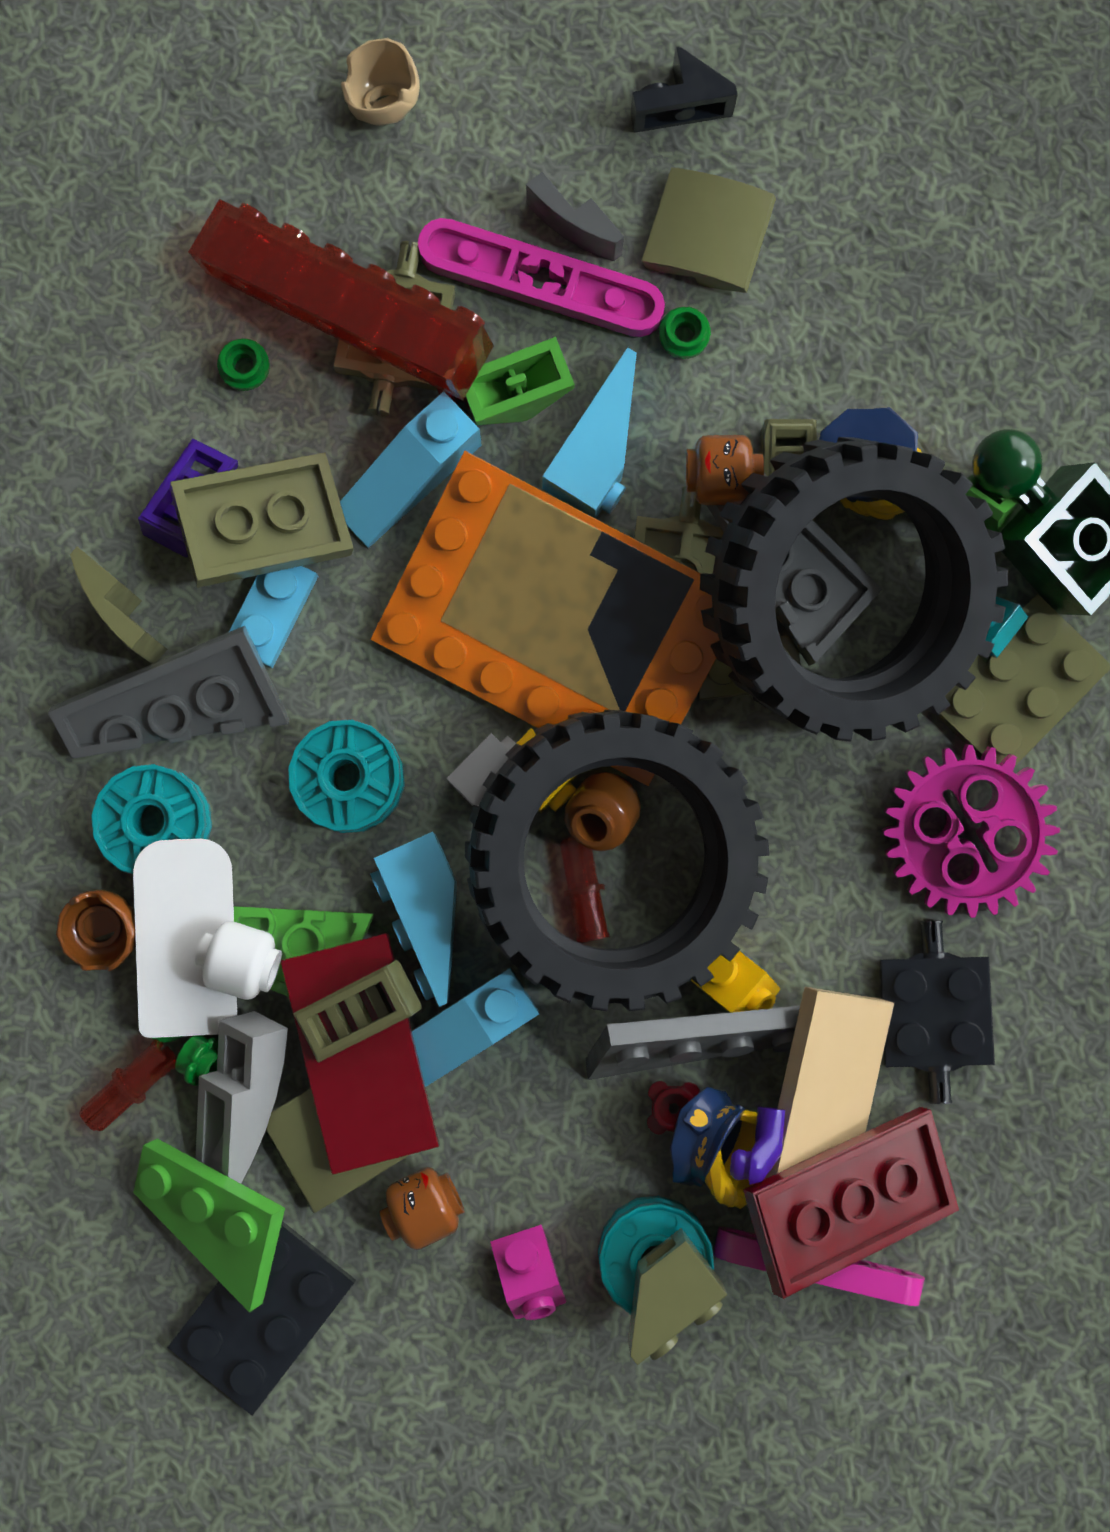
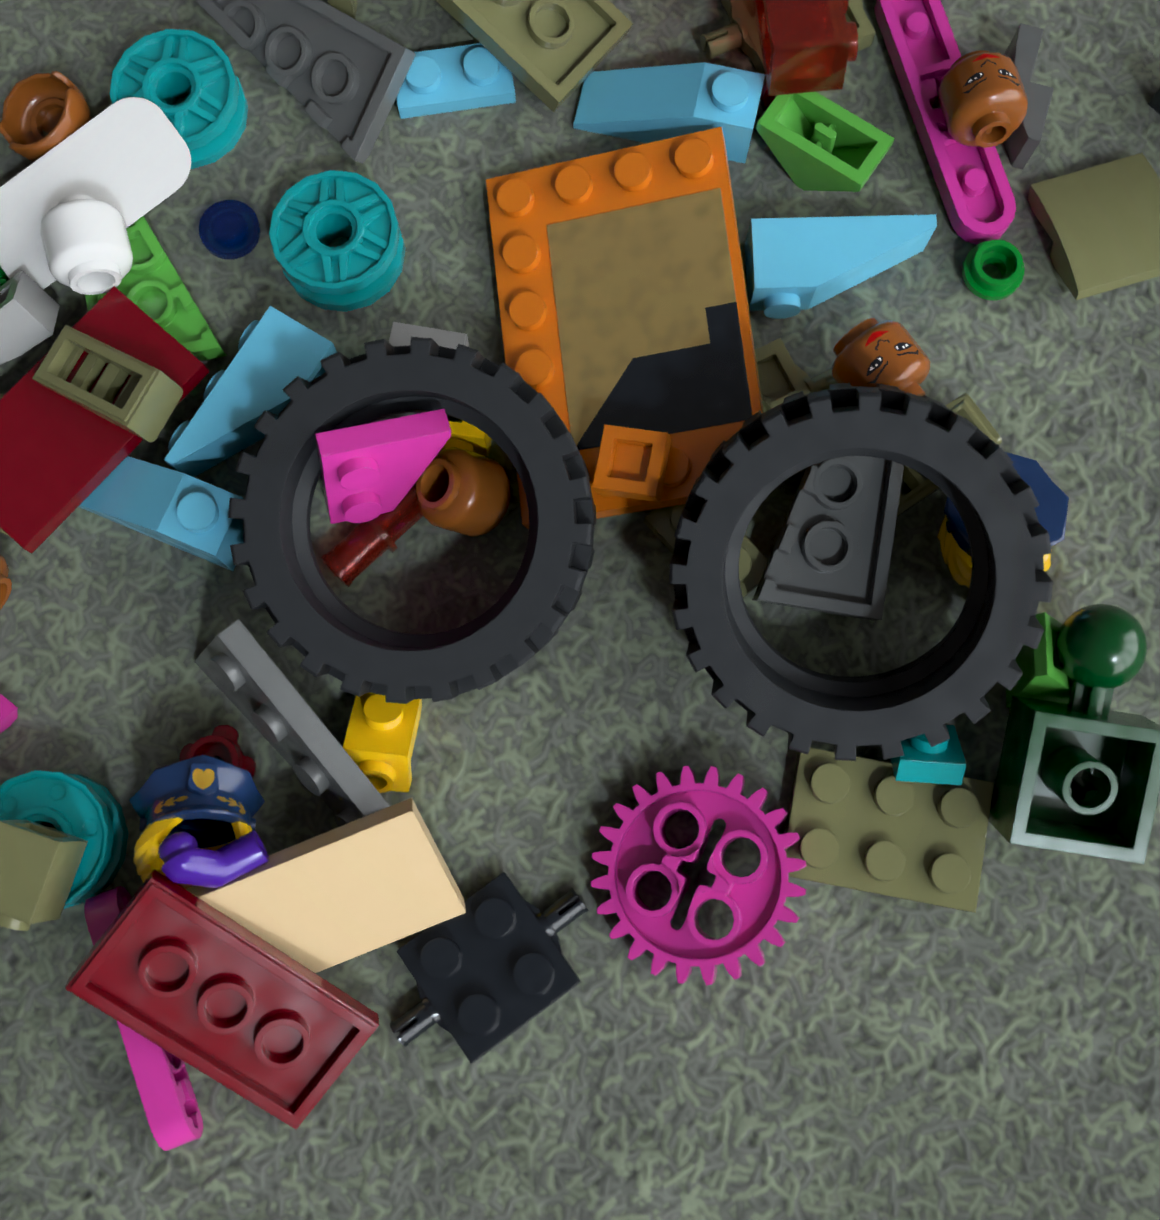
camera: 60 degrees right, 5 degrees down
(279, 849) = (229, 229): none -> clear blue plate
(557, 865) = (377, 463): none -> dark pink wing
(567, 254) = (982, 99): none -> dark orange head
(672, 683) = (632, 463): none -> orange plate

